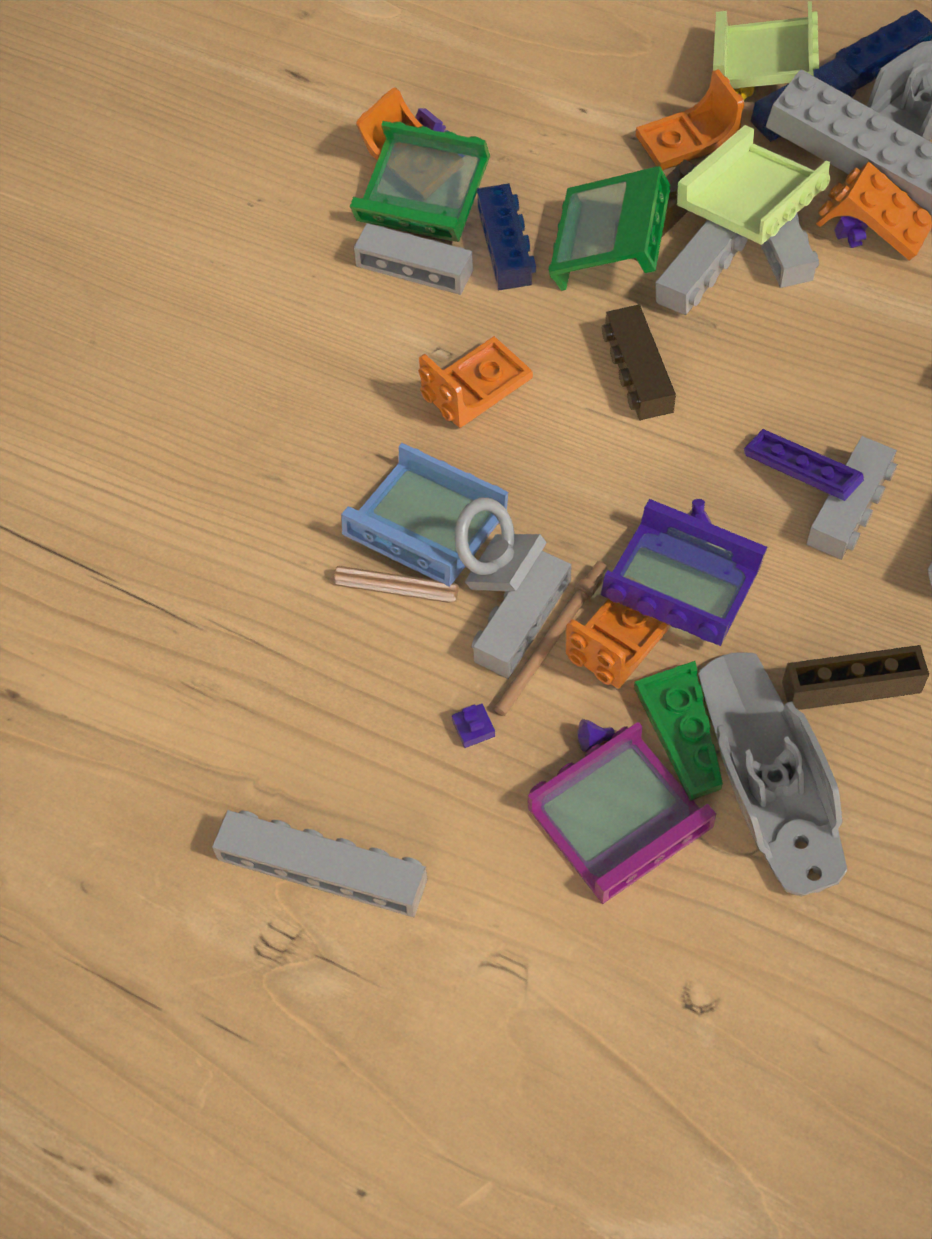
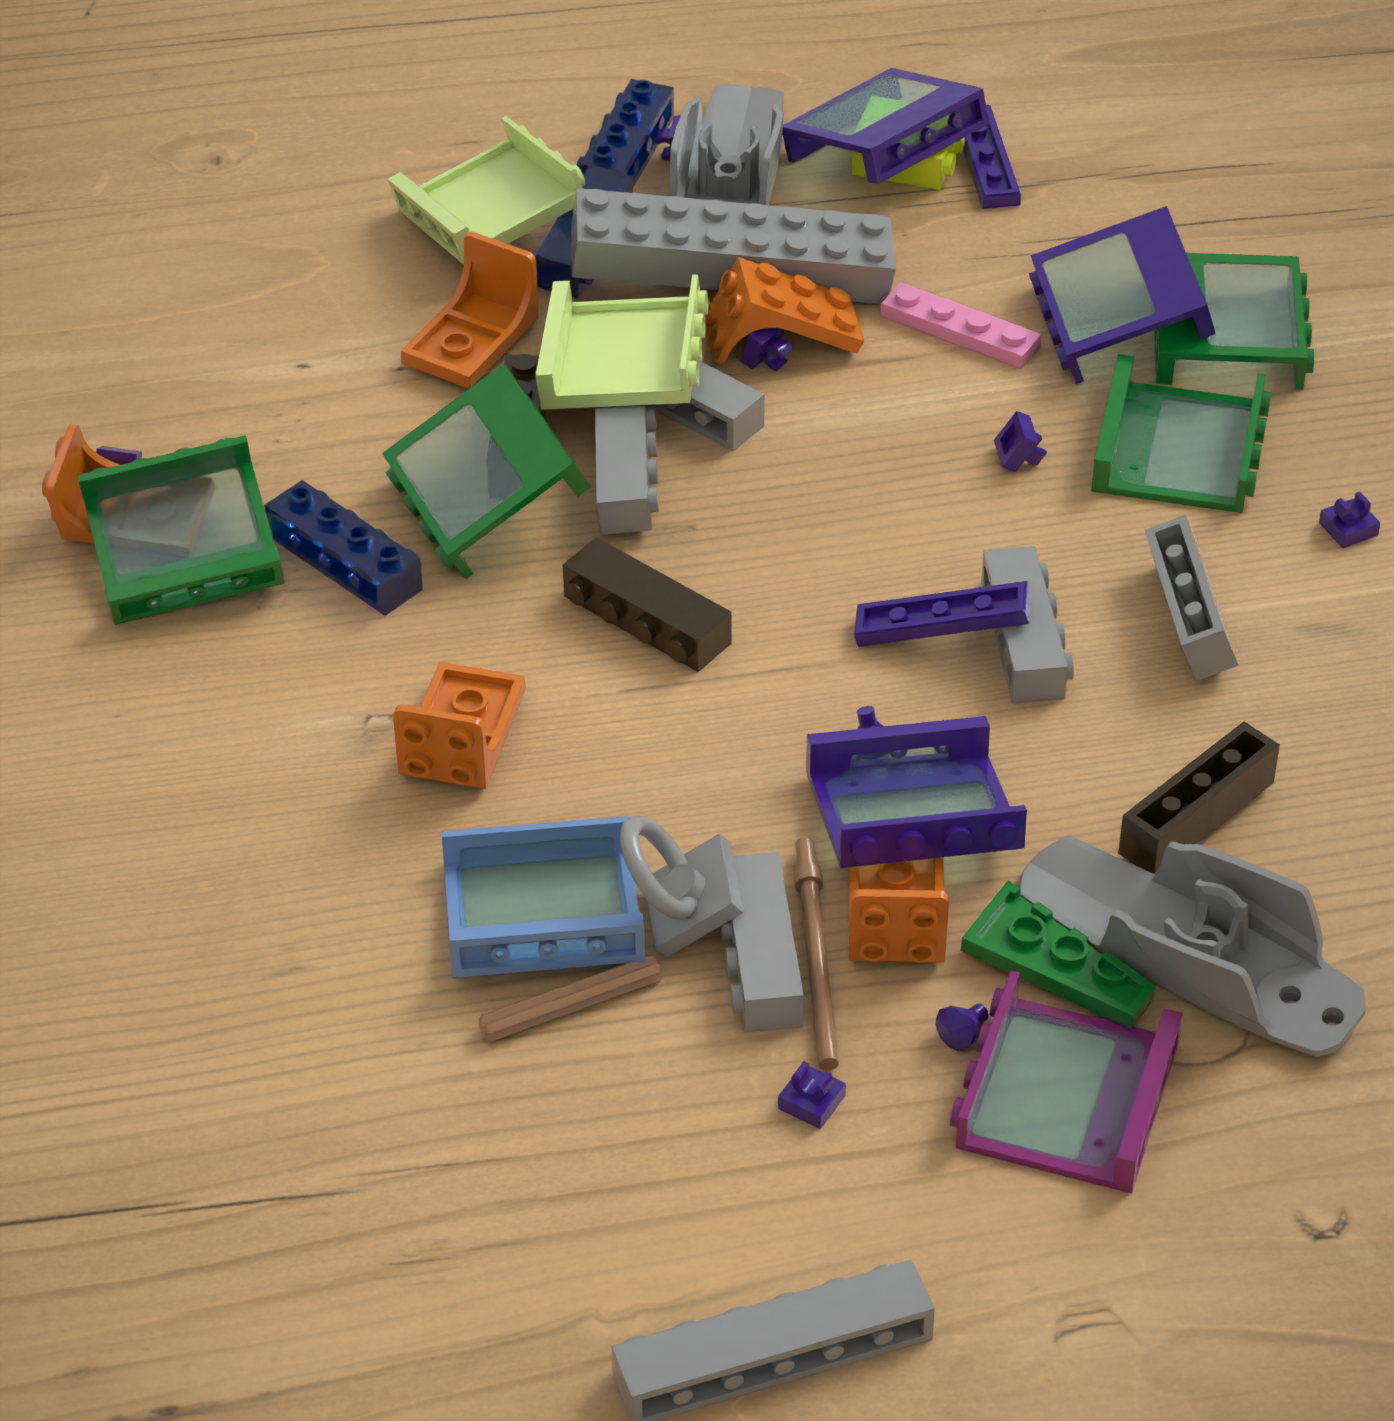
camera: 40 degrees left, 15 degrees down
(413, 258) = (246, 627): light grey brick -> none

